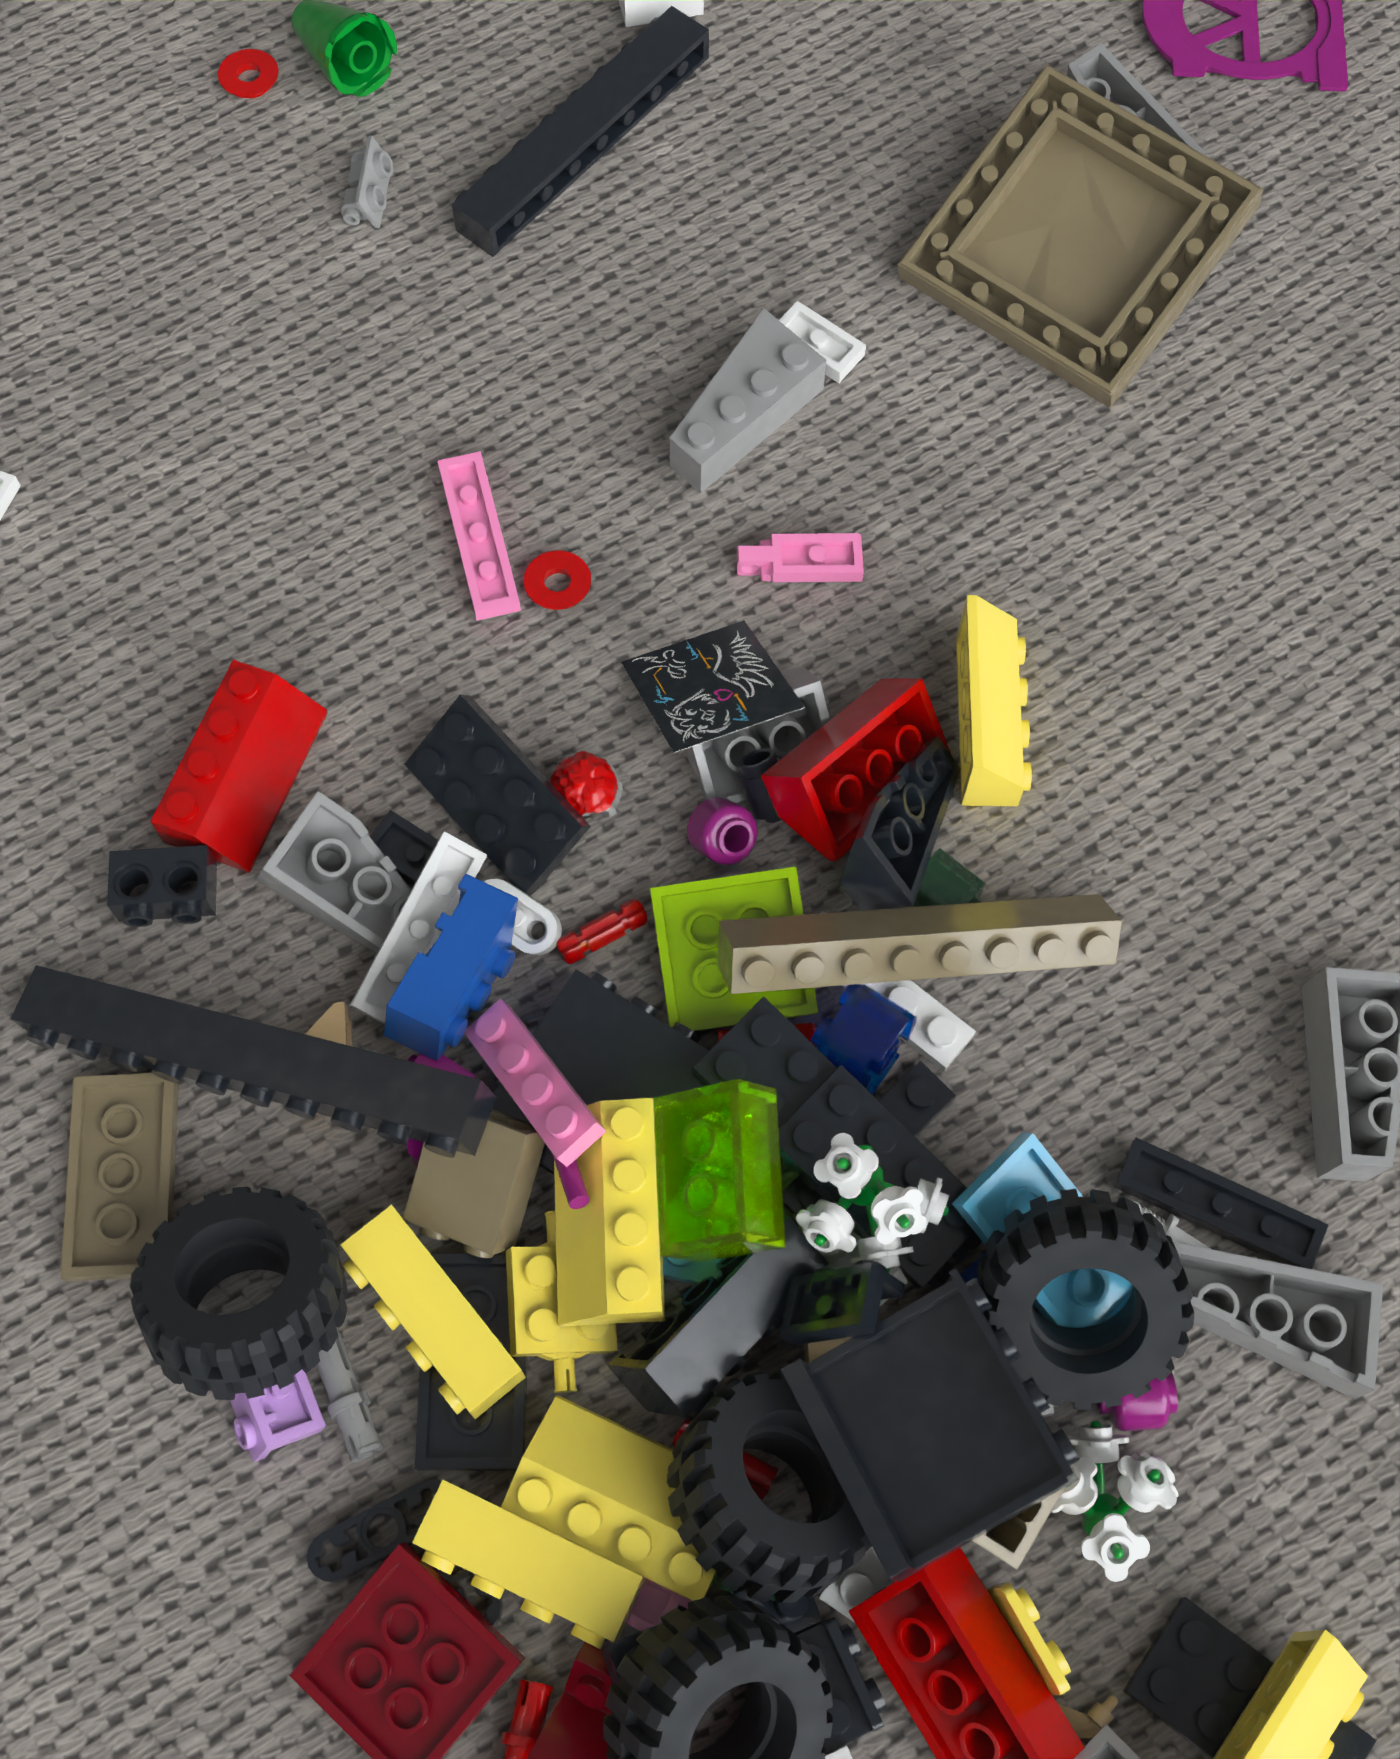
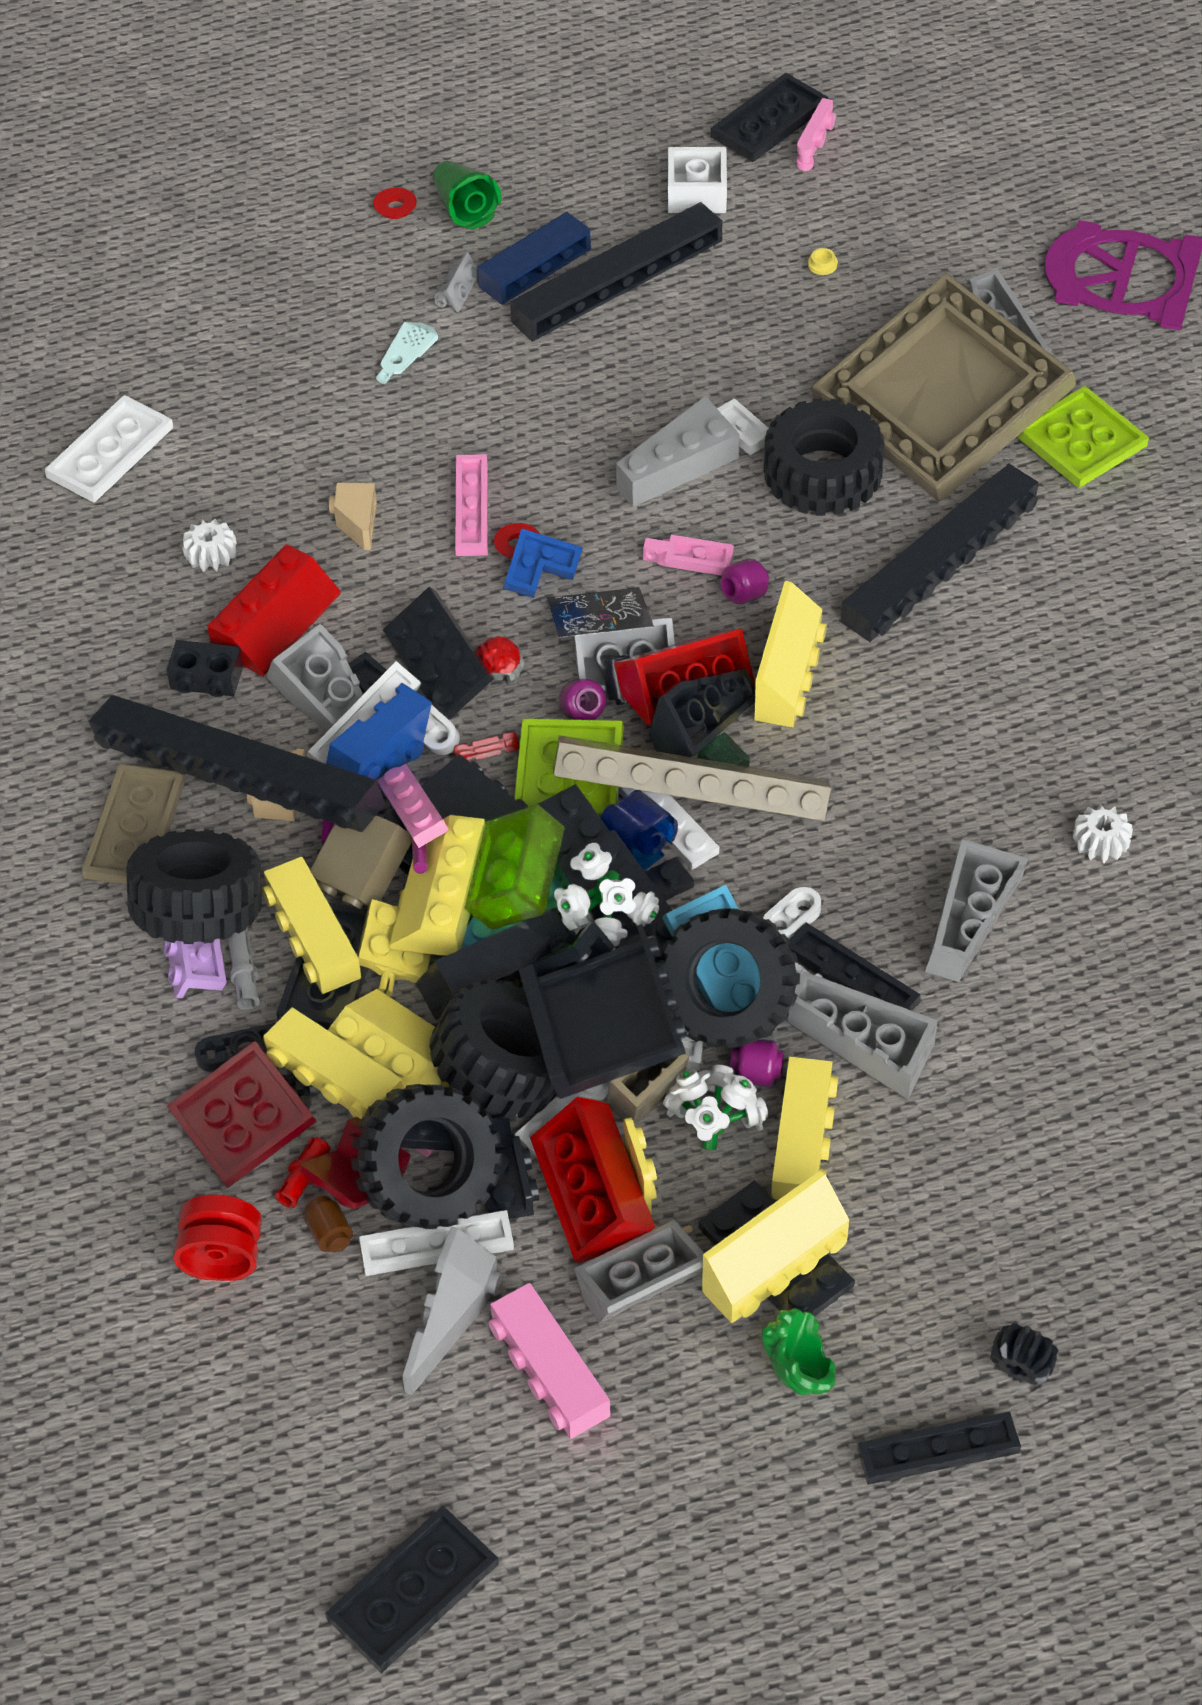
camera: 15 degrees right, 15 degrees down
(114, 690) = (209, 545): none -> white gear
(317, 578) = (355, 511): none -> tan slope
(323, 295) = (408, 344): none -> light aqua piece
(464, 128) = (534, 258): none -> dark blue brick
(590, 602) = (538, 554): none -> blue plate
(853, 67) = (822, 261): none -> light yellow plate
(891, 588) = (744, 581): none -> magenta head
(956, 327) = (819, 484): none -> black tyre
(1107, 1127) = (787, 914): none -> white plate
(1139, 494) = (939, 553): none -> black brick
(1232, 1497) = (803, 1123): none -> light yellow brick
(1278, 278) = (1083, 437): none -> lime plate

